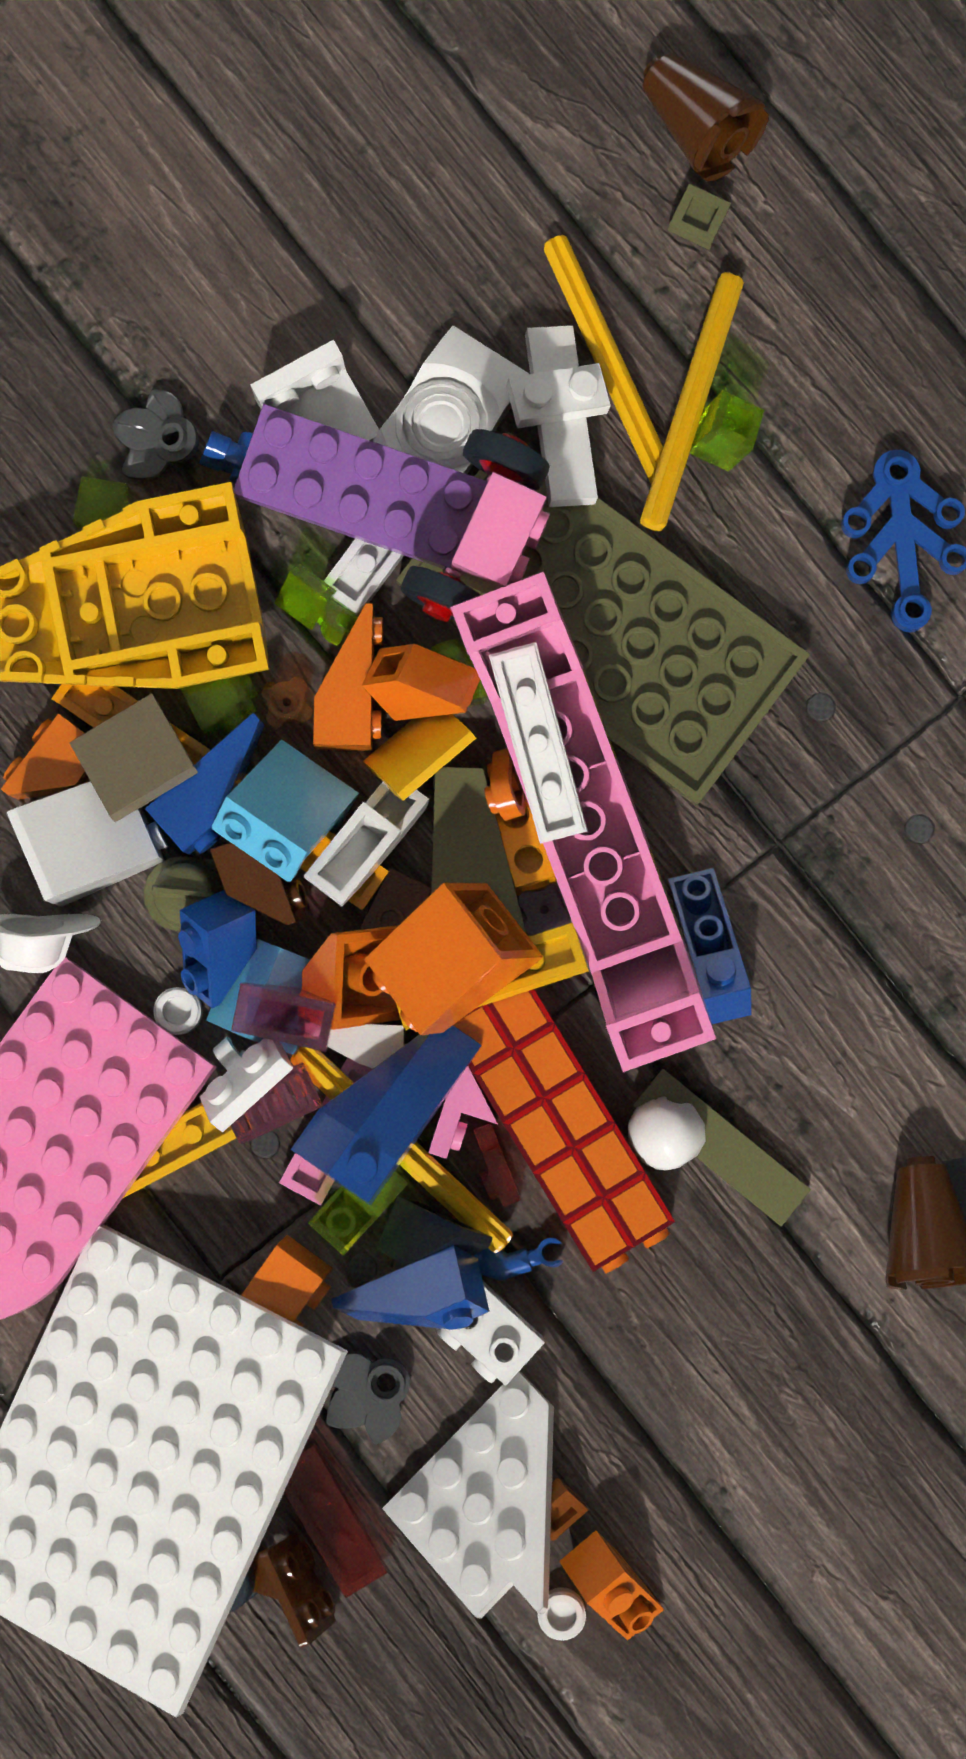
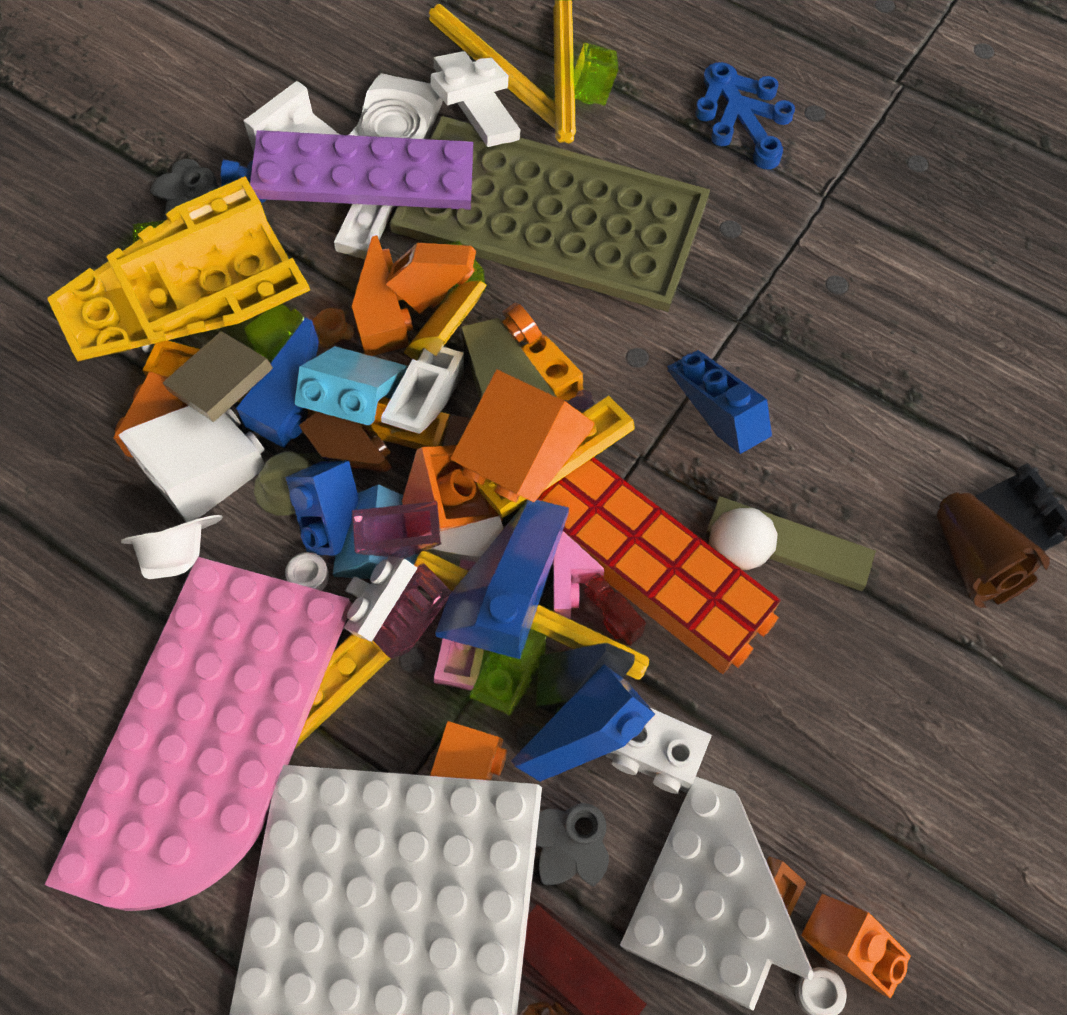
camera: 20 degrees left, 20 degrees down
(311, 603) = (329, 254): clear neon green plate -> none
(499, 530) = (454, 152): brick -> none
(508, 1265) = (664, 683): blue arm -> none
(538, 742) = (536, 270): white tile -> none
(609, 870) = (588, 315): bright pink slope -> none

